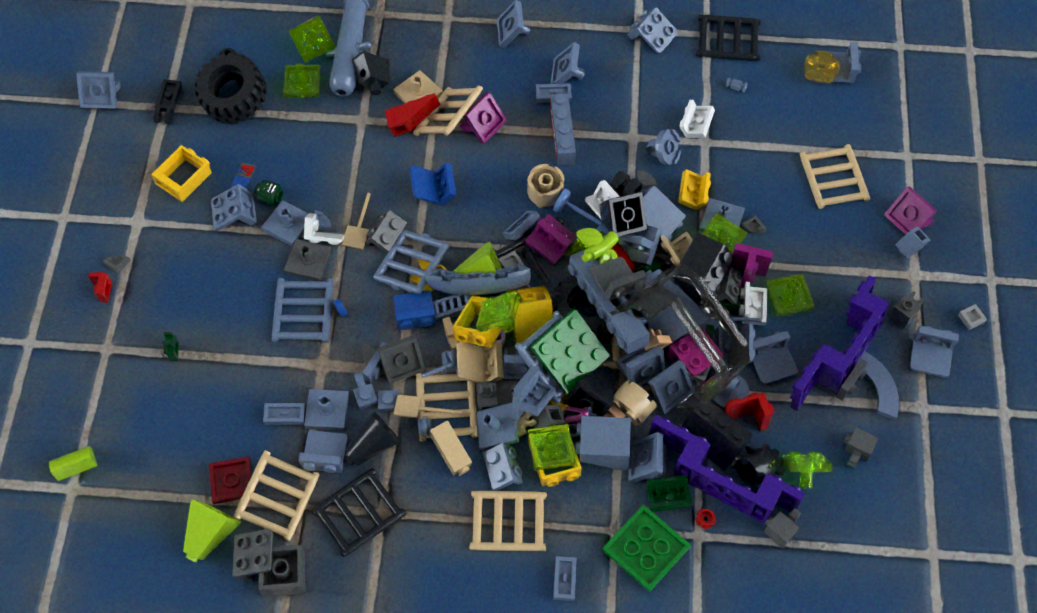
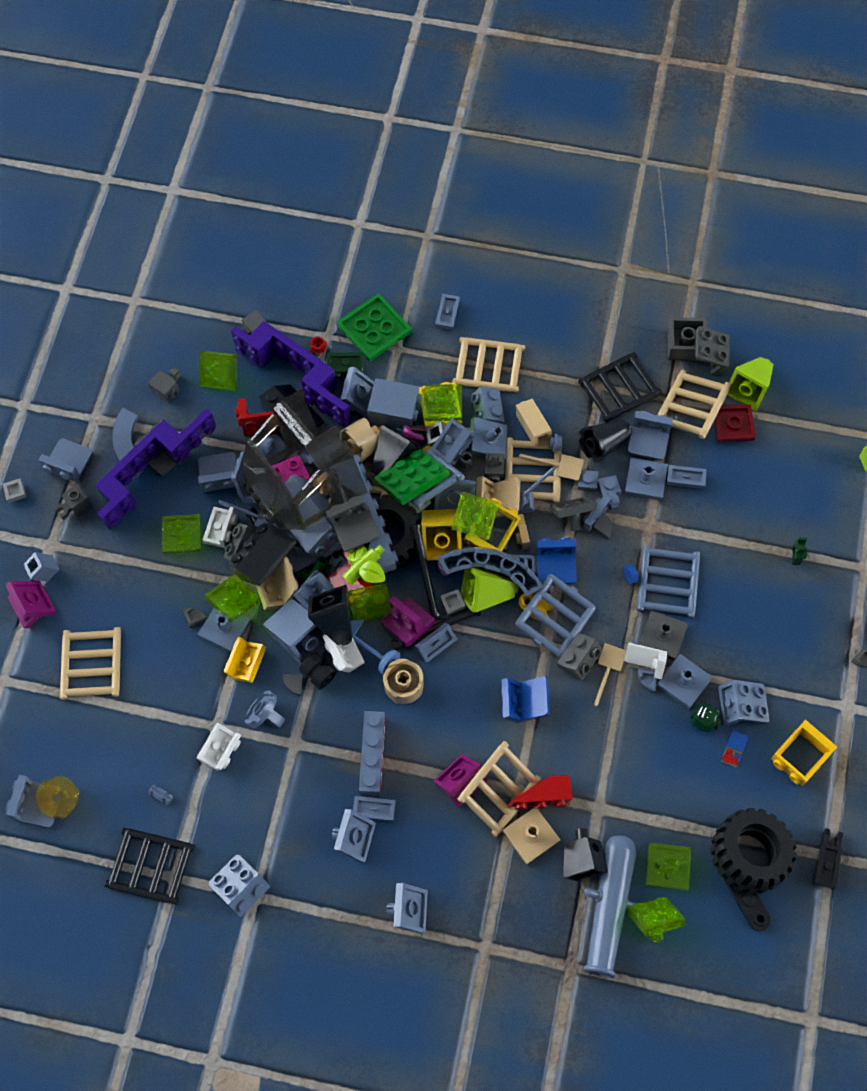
camera: 170 degrees left, 5 degrees up
(751, 262) = (211, 561): magenta bracket -> none
(760, 462) = (258, 377): black piece -> none

